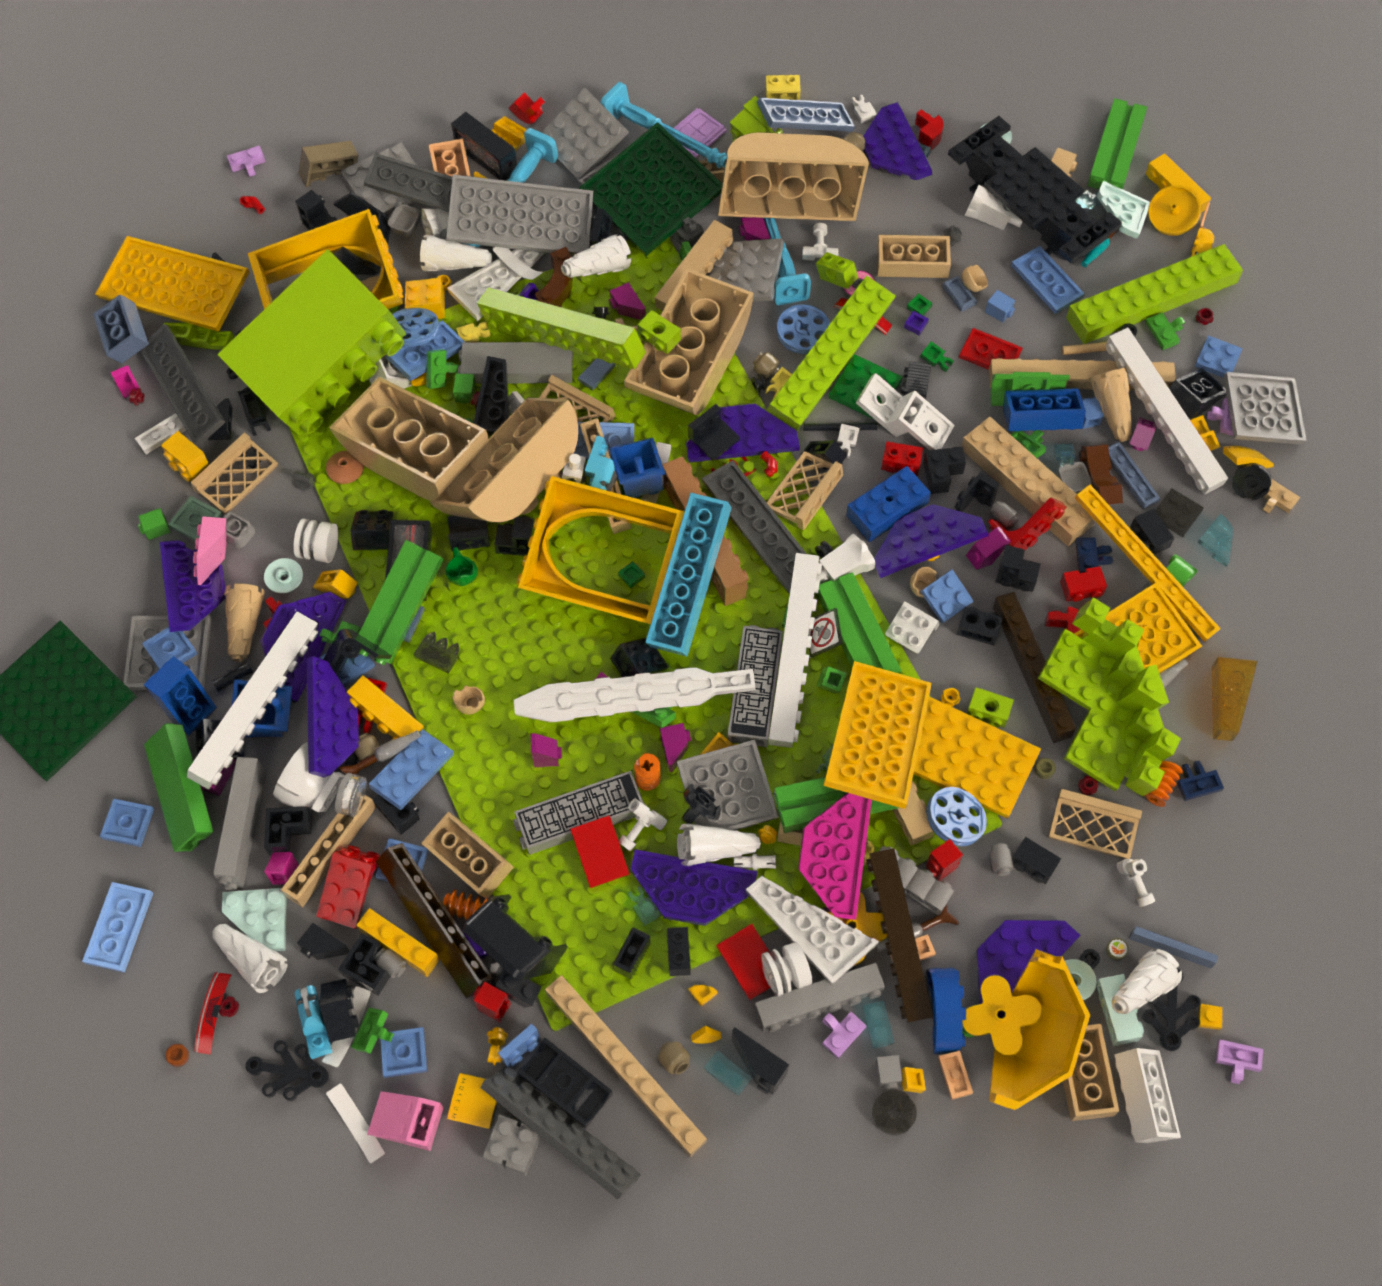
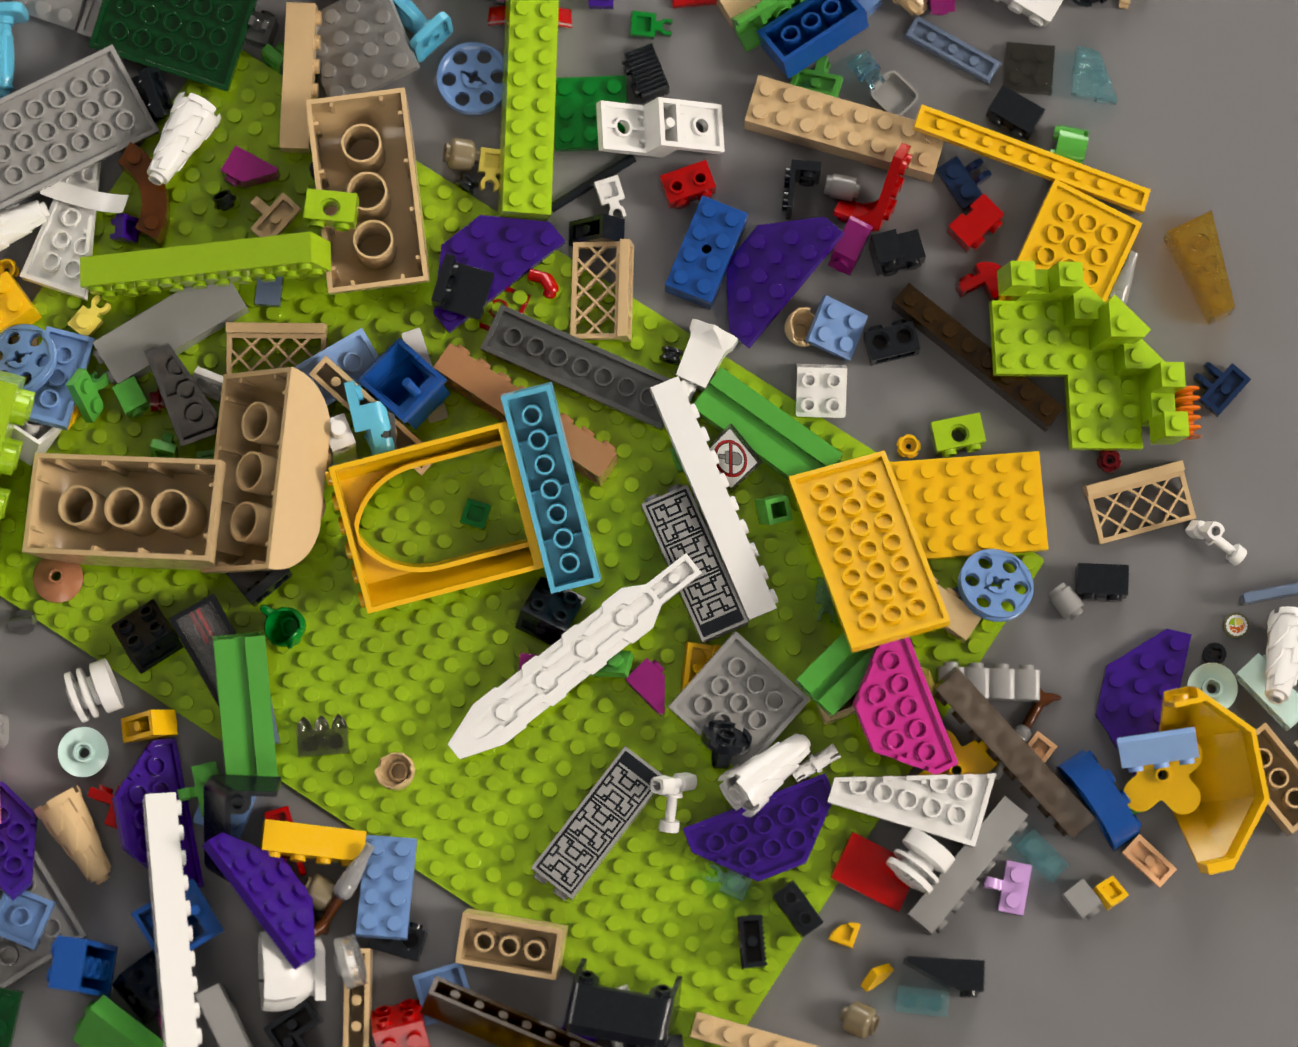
camera: 30 degrees left, 15 degrees up
(231, 675) = (111, 902): black pin -> none
(461, 905) = (544, 997): orange piece -> none
(514, 538) = (326, 551): black brick -> none
(545, 751) = (519, 779): magenta slope -> none
(599, 851) = (648, 854): red tile -> none
(647, 772) = (644, 727): orange piece -> none
(767, 834) = (810, 725): yellow plate -> none
(904, 1105) = (1116, 923): clear smoke plate -> none
(940, 465) = (735, 168): black brick -> none
(944, 860) = (1009, 642): red brick -> none
(1008, 988) = (1158, 749): none -> light blue slope
(1045, 768) = (1053, 468): olive tile -> none
(1098, 465) = (909, 60): reddish brown brick -> none

